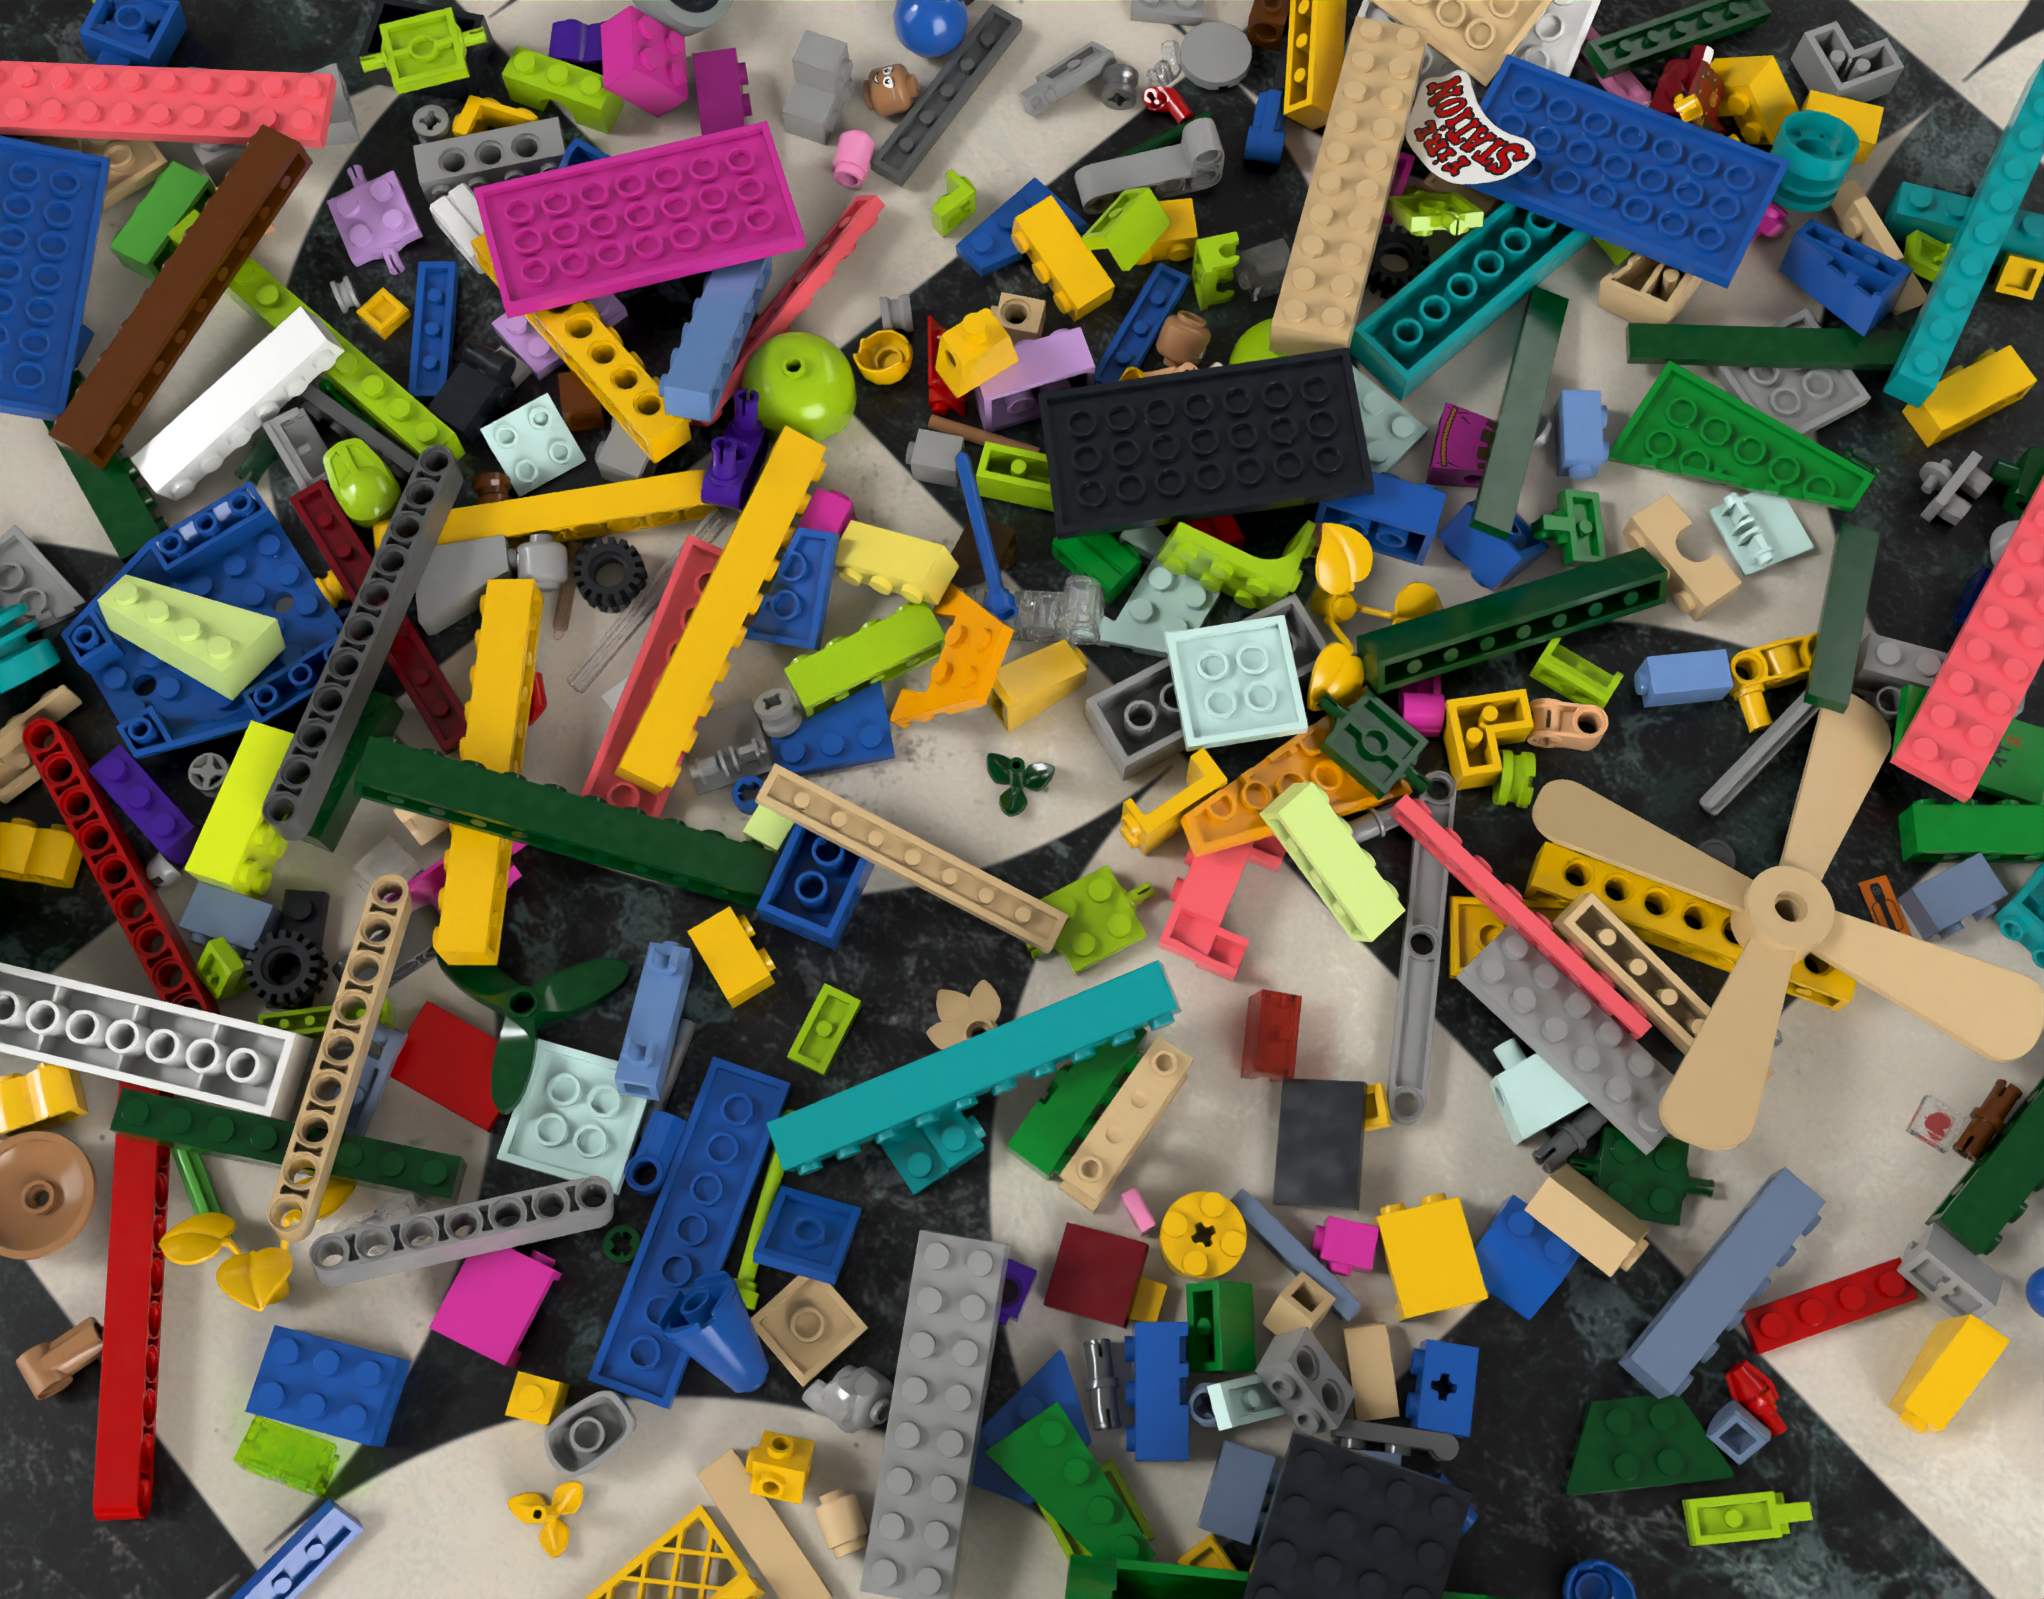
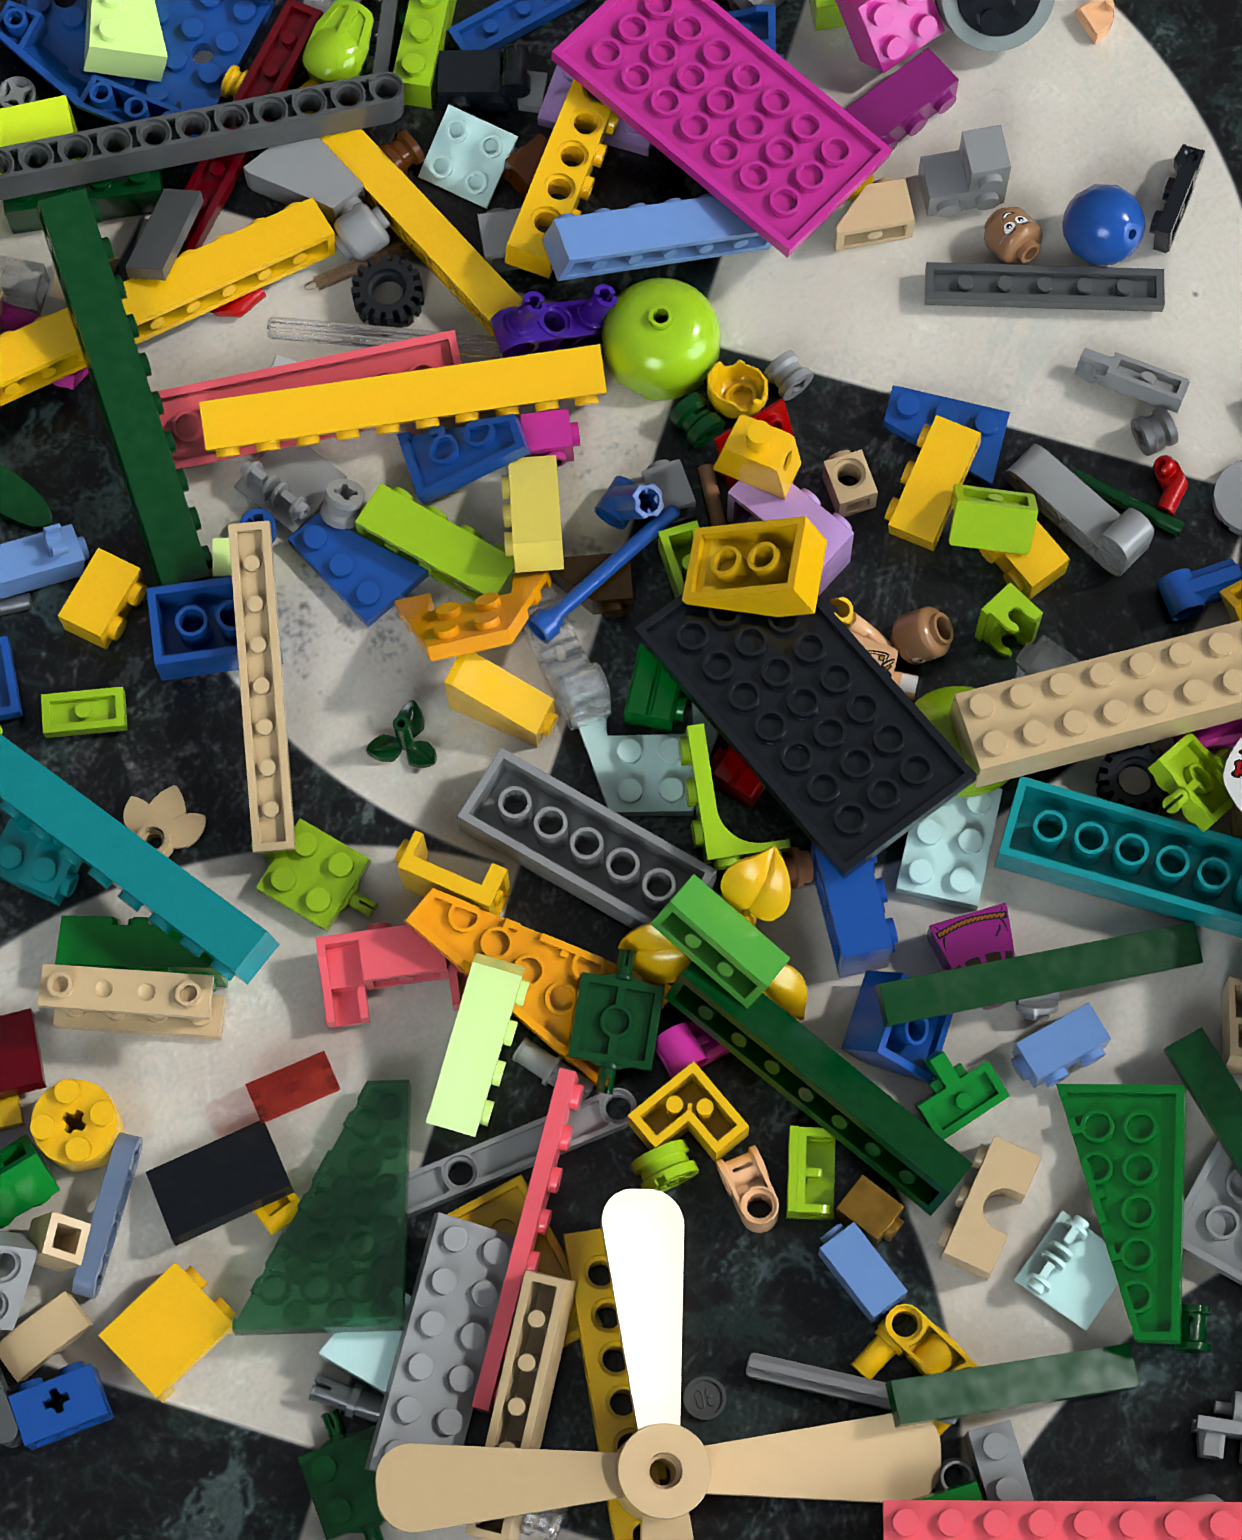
camera: 60 degrees right, 0 degrees up
(438, 714) = (164, 234): none -> dark grey tile
(798, 290) = (754, 280): coral plate -> none
(807, 171) = (877, 216): none -> tan slope
(853, 158) = (921, 245): bright pink brick -> none
(888, 401) = (697, 420): none -> dark green wheel
(927, 489) = (629, 501): none -> blue piece
(955, 206) = (931, 362): lime bracket -> none
(1068, 409) = (757, 567): none -> yellow slope
(1137, 1211) = (71, 1059): bright pink tile -> none
(1143, 323) = (901, 593): blue tile -> none
(1168, 68) = (1207, 463): clear arm -> none
(1235, 683) = (589, 864): light aqua plate -> none
(1345, 1245) = (139, 1252): dark pink brick -> none
(1367, 616) = (720, 941): none -> bright green brick
(1439, 1062) = (348, 1242): none -> clear green wing
(1521, 1258) = (218, 1412): blue slope -> none
(1589, 1220) = (272, 1446): tan brick -> none
(1631, 644) = (871, 1210): none -> pearl gold brick

